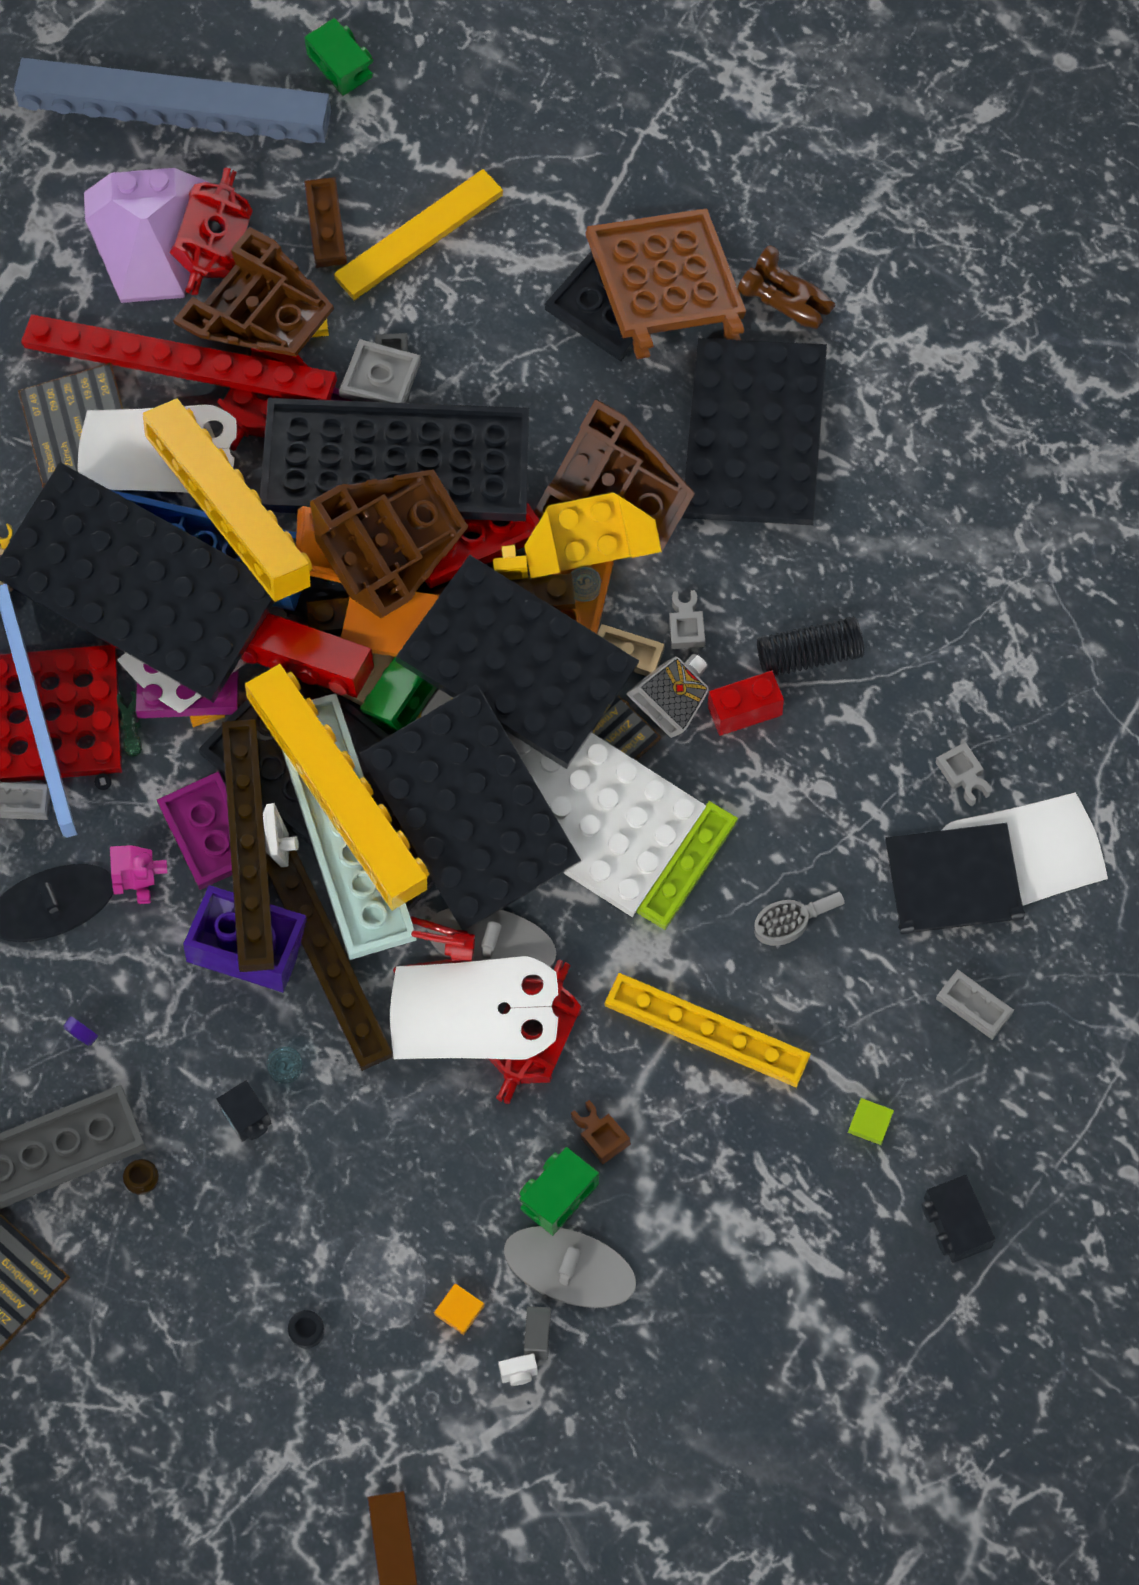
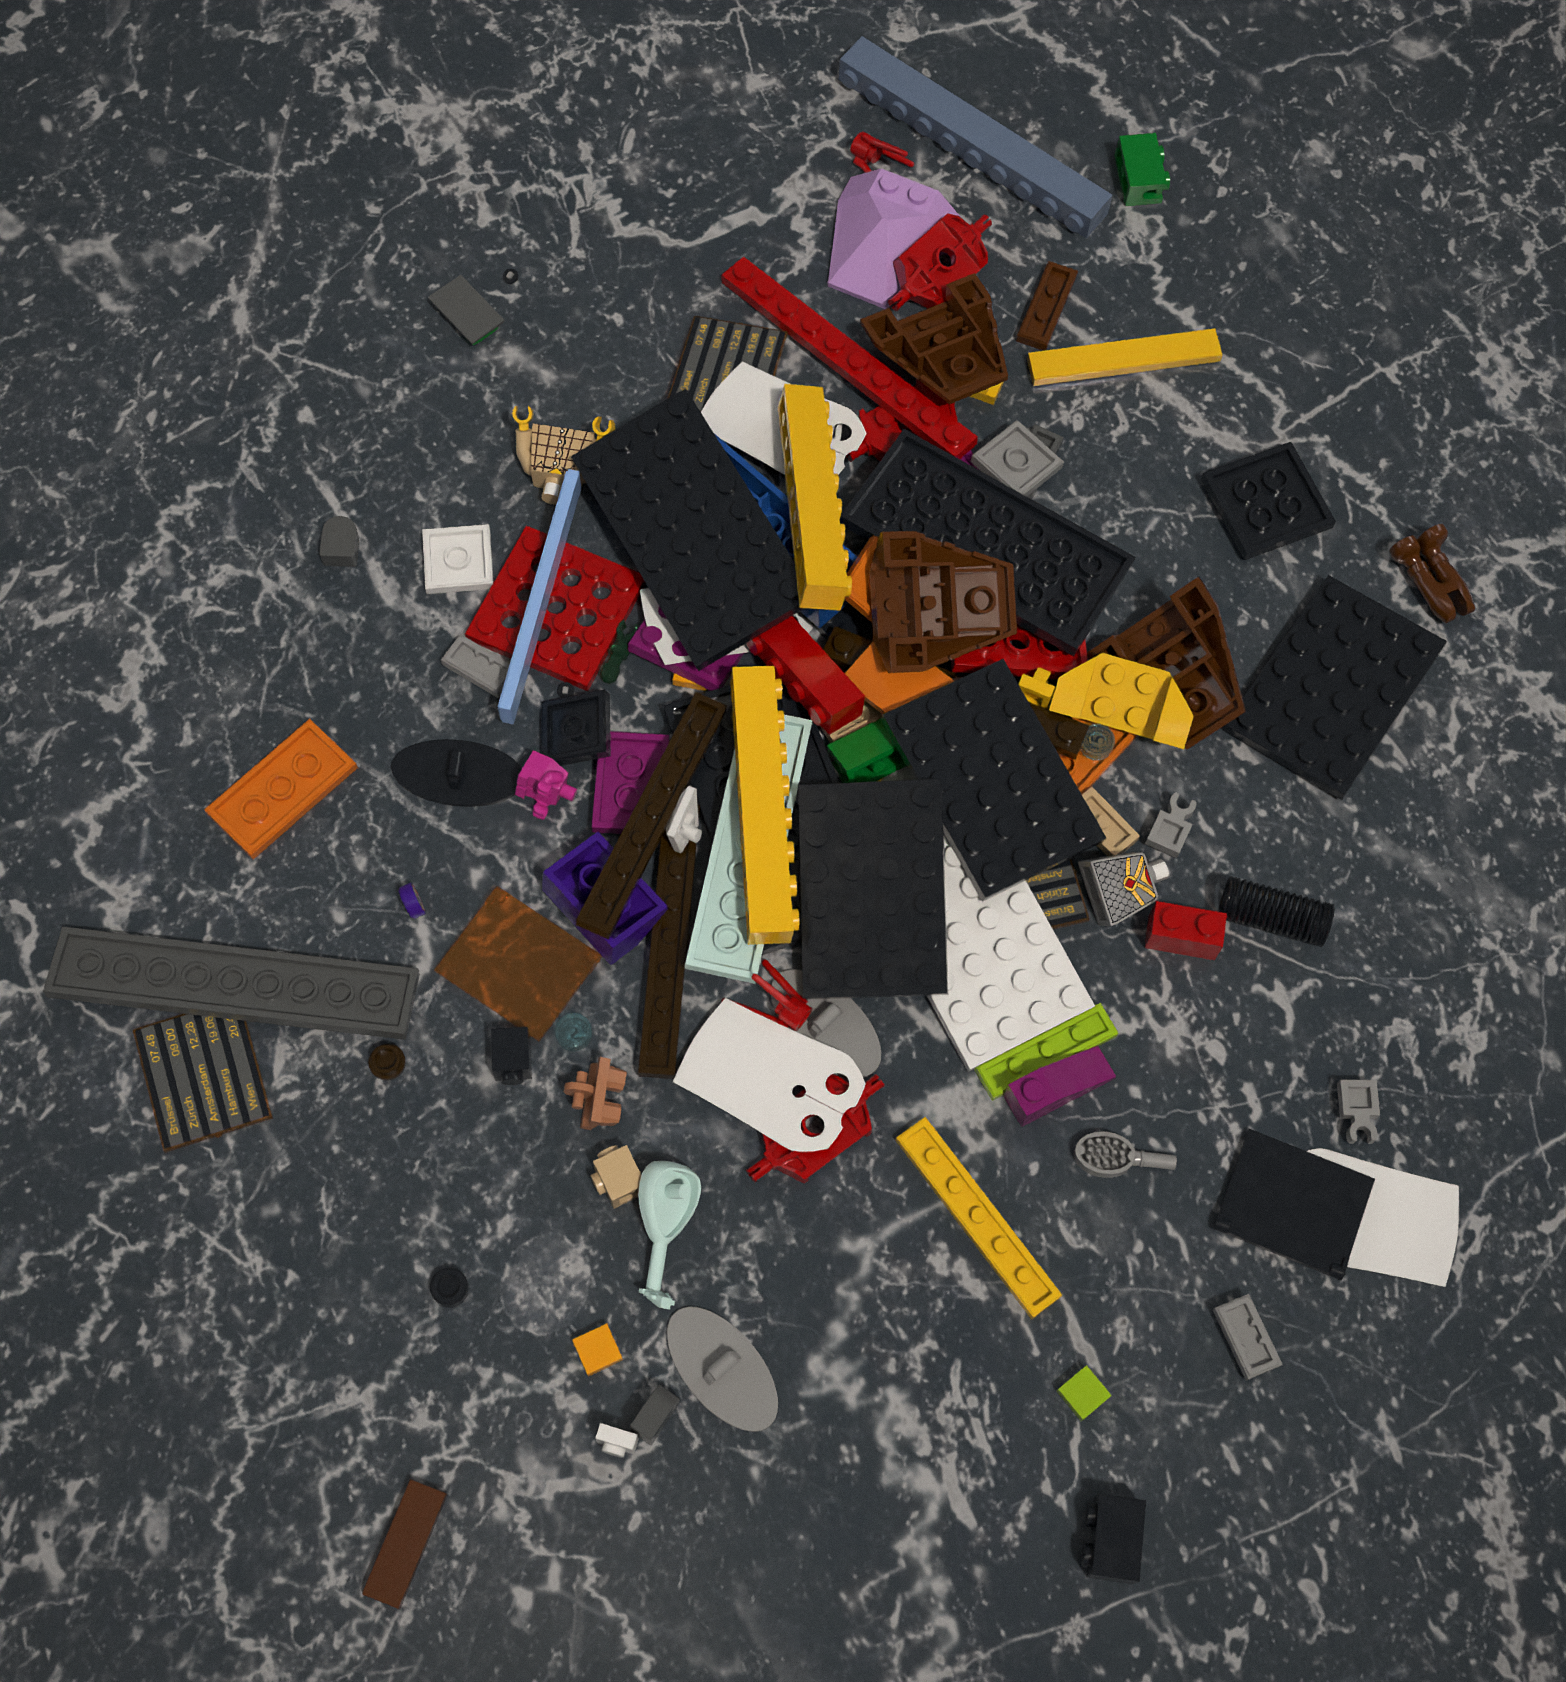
camera: 25 degrees right, 0 degrees up
(86, 159) = (870, 149): none -> red plant
(134, 808) = (577, 727): none -> black tile
(202, 1034) = (518, 963): none -> clear orange piece
(331, 1106) = (596, 1109): none -> nougat hips
(394, 1160) = (616, 1175): none -> tan brick
(449, 1159) = (666, 1202): none -> light aqua piece
(558, 1190) = (751, 1290): green brick -> none
(602, 1135) = (822, 1262): reddish brown plate -> none
(666, 276) = (1329, 504): dark orange plate -> none
(711, 887) = (1057, 1084): none -> magenta slope

